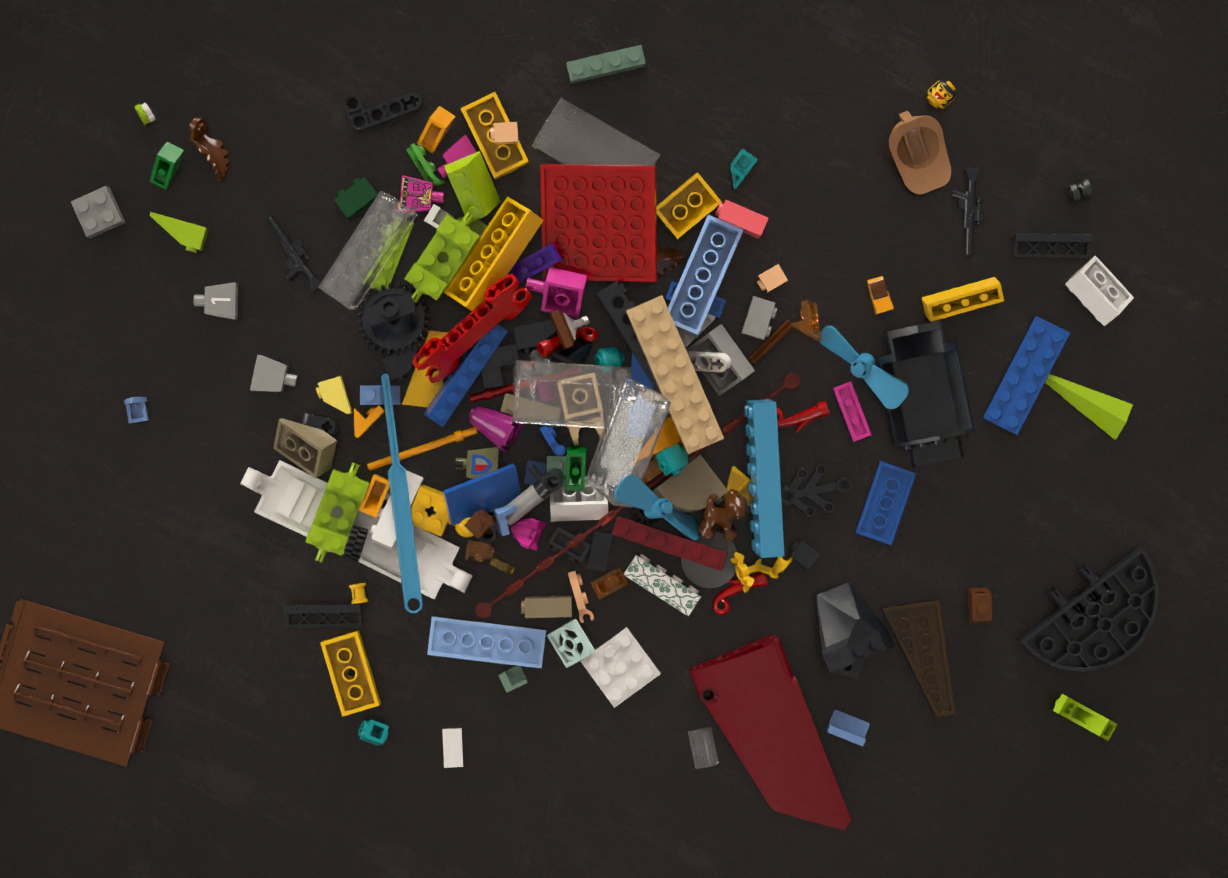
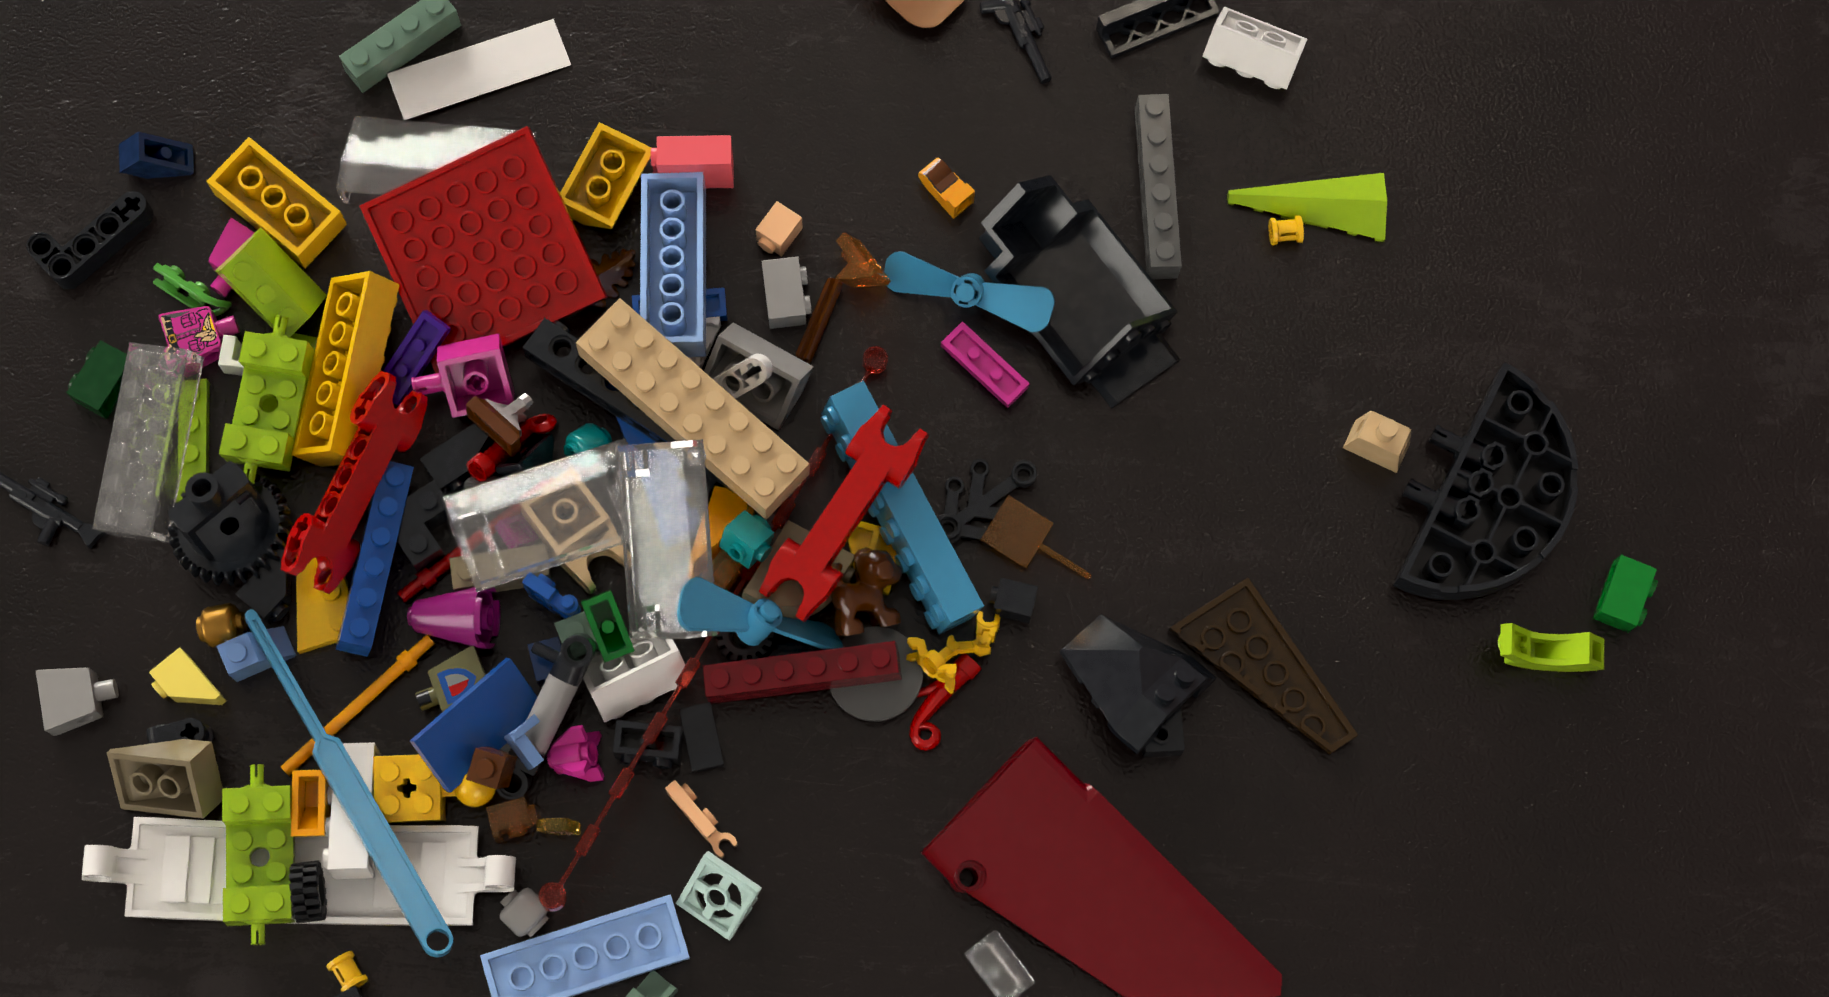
camera: 30 degrees left, 15 degrees down
(362, 424) = (249, 706): light orange slope -> none
(366, 371) = (220, 624): none -> pearl gold head
(435, 129) = (185, 233): light orange slope -> none
(437, 74) = (155, 157): none -> dark blue slope
(464, 604) = (523, 912): none -> light grey head
(505, 133) = (286, 182): light nougat brick -> none
(547, 606) = (655, 853): dark tan brick -> none
(609, 583) = (736, 776): clear orange slope -> none
(620, 667) = (813, 901): white plate -> none
(644, 99) = (478, 69): none -> white sticker
(662, 585) = (819, 743): white brick -> none
(741, 166) = (663, 98): teal slope -> none
(761, 455) = (813, 559): none -> red piece
(804, 417) = (922, 401): red plant -> none
(825, 517) = (1019, 534): none -> clear orange piece
(848, 727) = (1207, 832): medium blue panel -> none
(885, 503) = (1098, 475): blue tile -> none
(962, 299) = (1068, 136): yellow brick -> none
(979, 605) = (1312, 559): reddish brown torso -> none
(1000, 350) = (1157, 186): none -> dark grey brick
(1026, 375) = (1212, 206): blue plate -> none
(1050, 556) = (1379, 440): none -> tan torso
(1061, 409) = (1286, 230): none -> yellow bush
(1143, 704) = (1625, 594): none -> green brick

